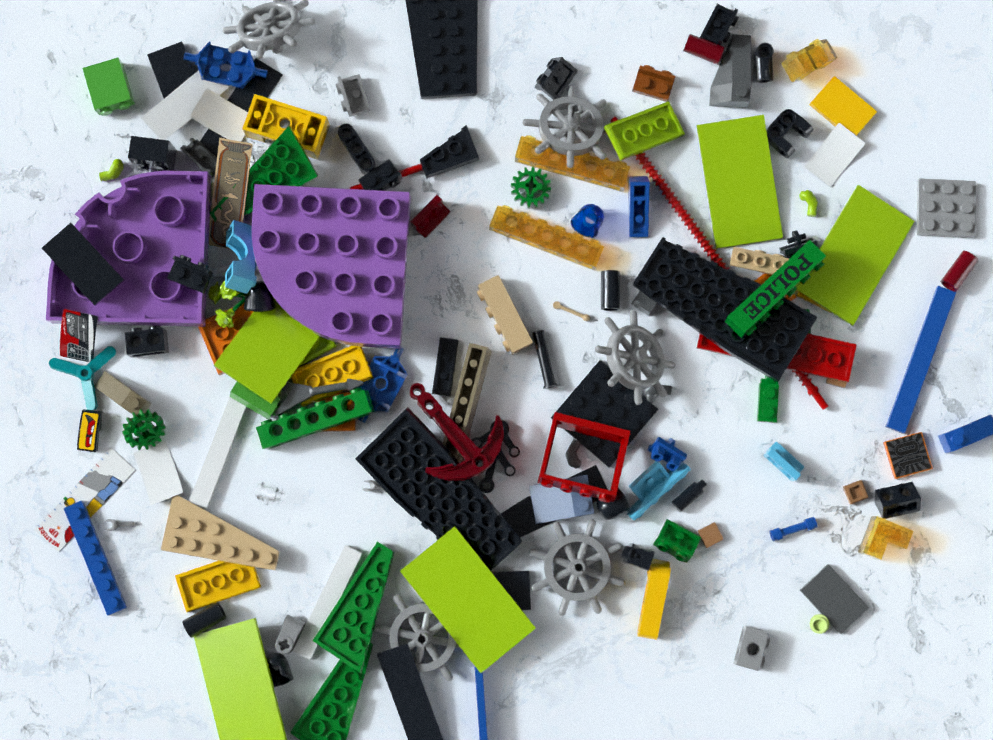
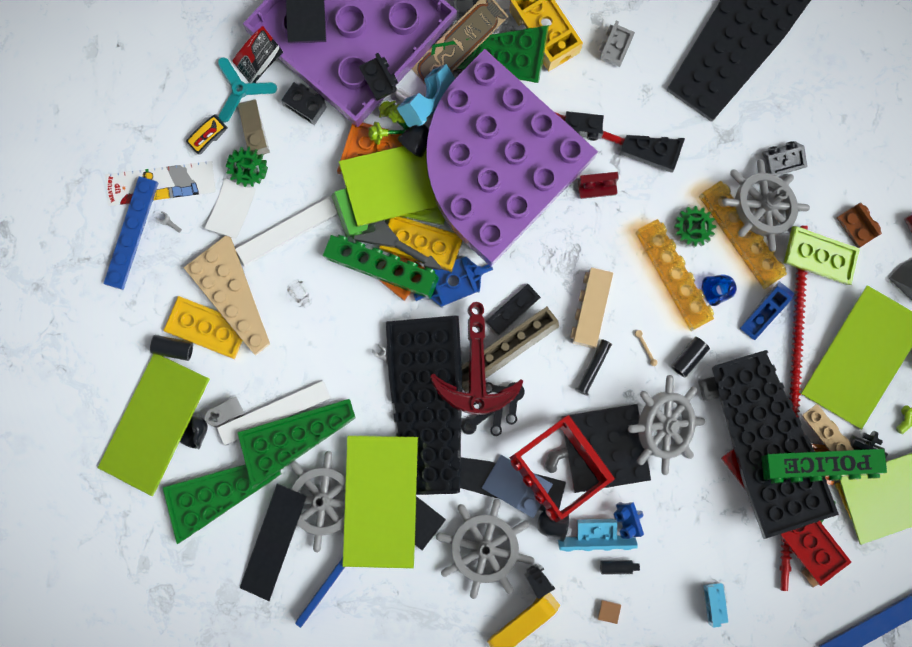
camera: 40 degrees right, 0 degrees up
(353, 141) = (585, 79): black beam -> none
(651, 393) = (656, 463): dark grey arm -> none
(677, 541) = (579, 594): green bracket -> none
(767, 400) = (742, 546): green hinge -> none

